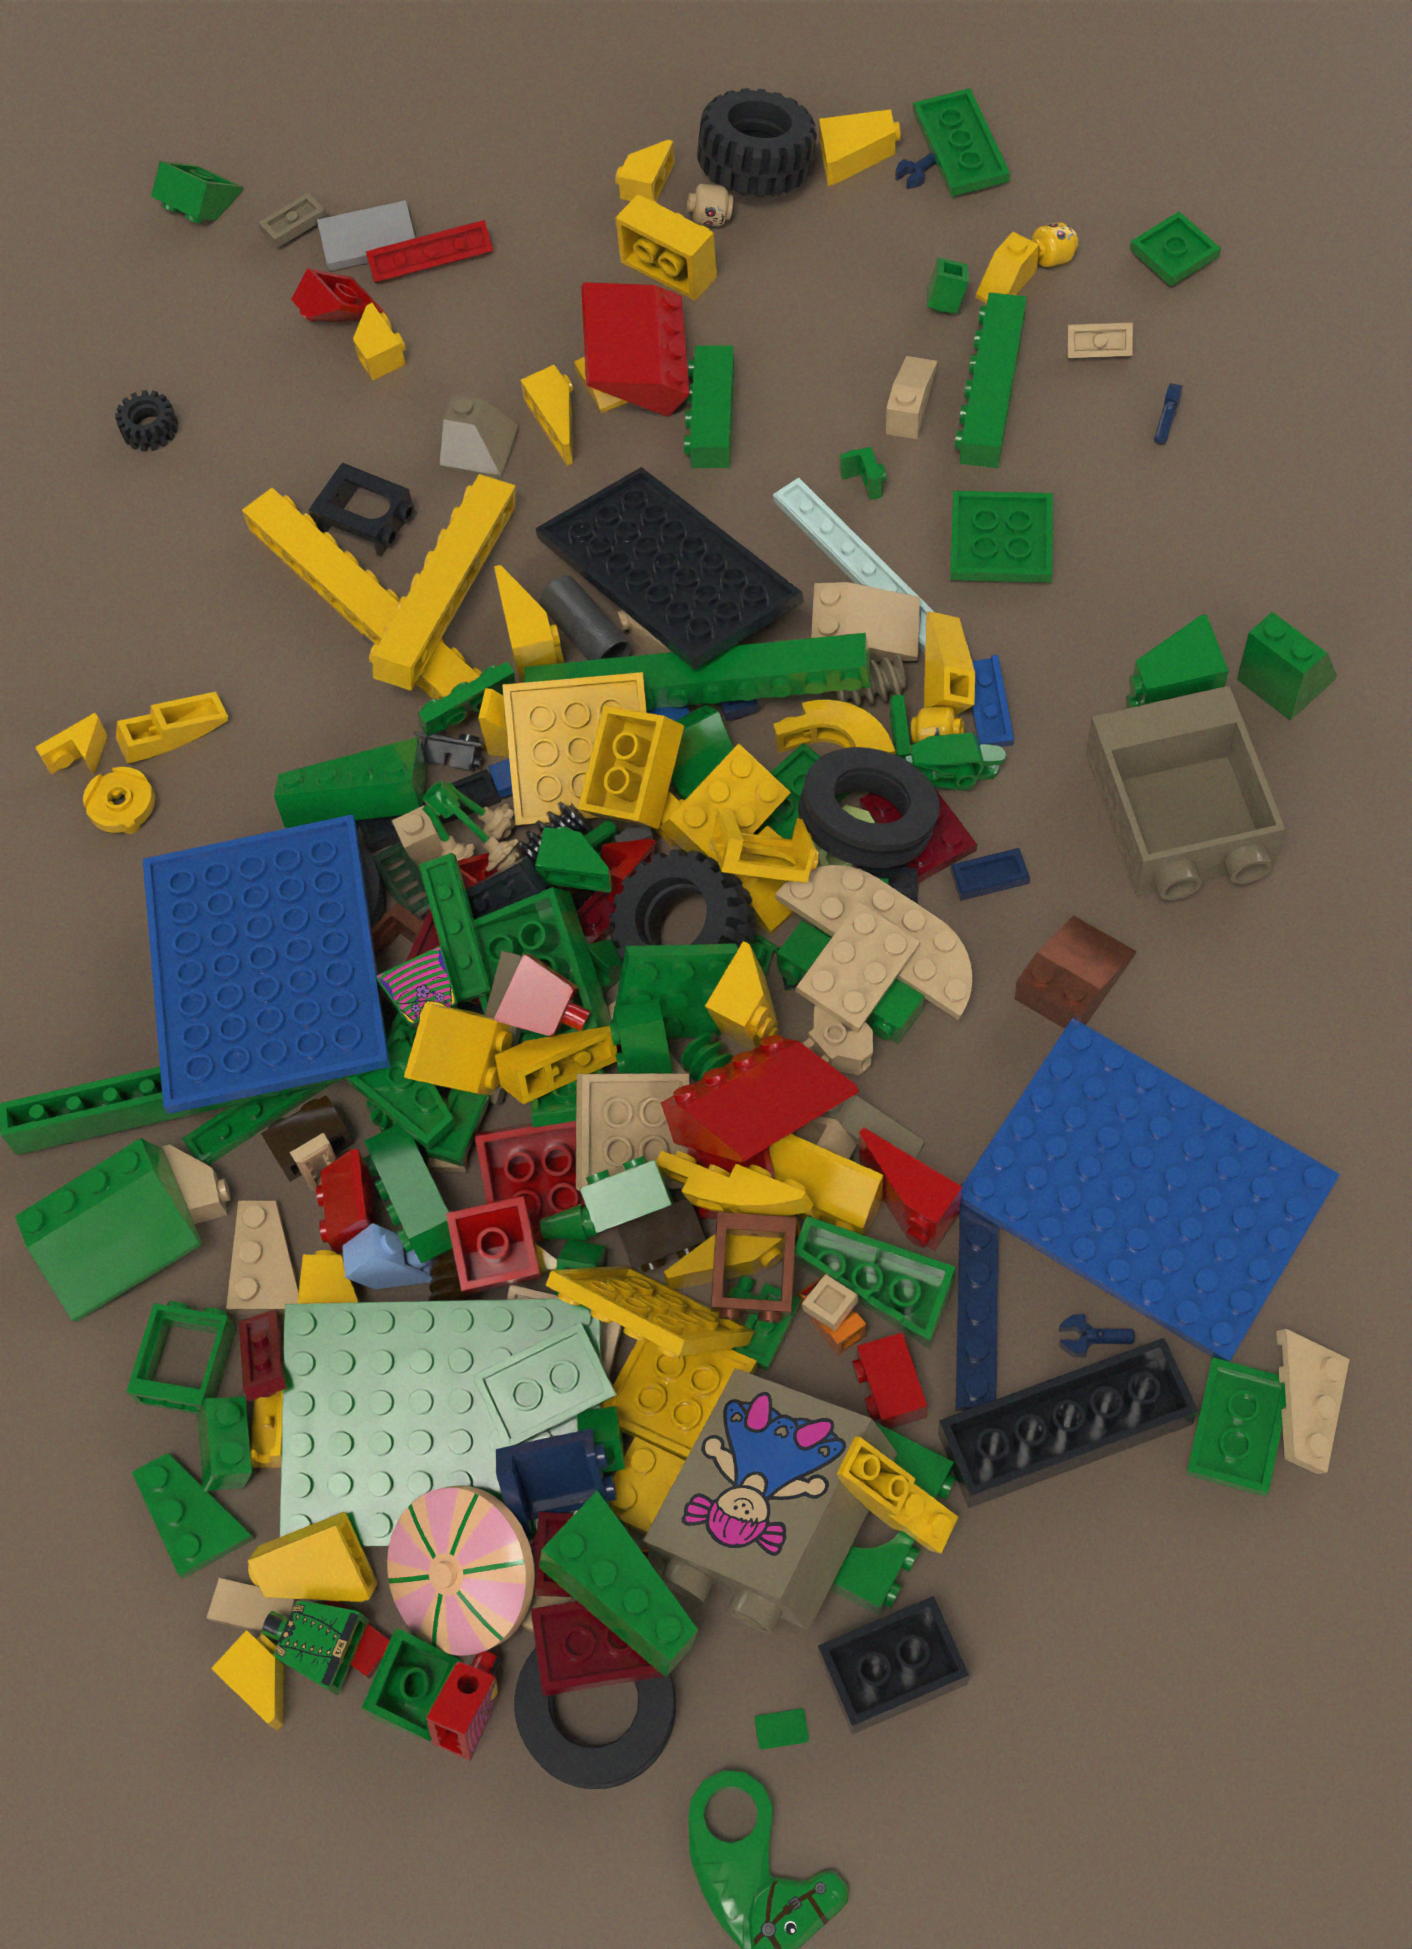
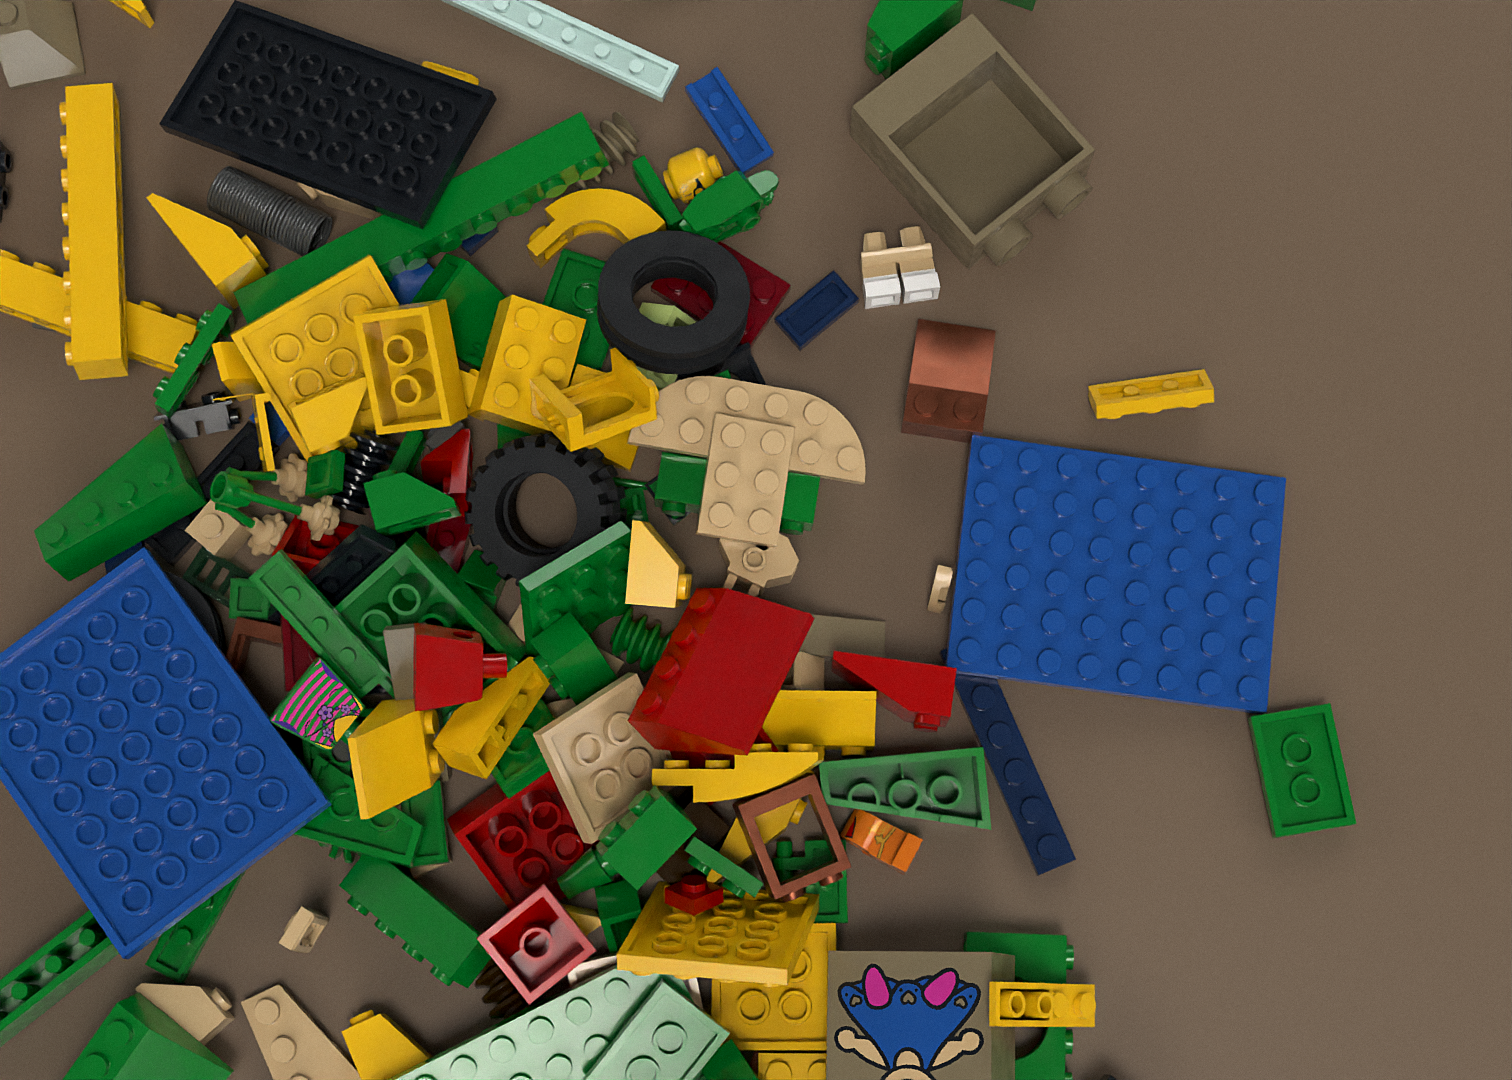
camera: 30 degrees left, 15 degrees up
(311, 1120) = (273, 903): dark brown brick -> none
(346, 1198) = (357, 957): red slope -> none
(380, 1260) = (420, 999): light blue slope -> none
(412, 896) = (247, 601): none -> green tile
(486, 788) = (265, 448): none -> yellow piece
(522, 824) = (325, 474): none -> green tile
(547, 778) = (328, 413): none -> yellow slope
(647, 1276) = (694, 894): none -> red plate
(688, 1277) = (736, 879): none -> green plate
(830, 1302) = (881, 837): tan plate -> none
(884, 615) = (562, 82): tan slope -> none
(890, 1381) = (968, 881): red brick -> none
(948, 664) = (672, 100): yellow slope -> none
(984, 1132) = (939, 589): none -> tan tile
(1062, 858) = (912, 262): none -> hips
(1067, 1422) = (1150, 845): black brick -> none
(1091, 1336) = (1131, 744): dark blue bar -> none
(1248, 1055) = (1151, 394): none -> yellow plate
(1313, 1394) = (1354, 705): tan wing -> none

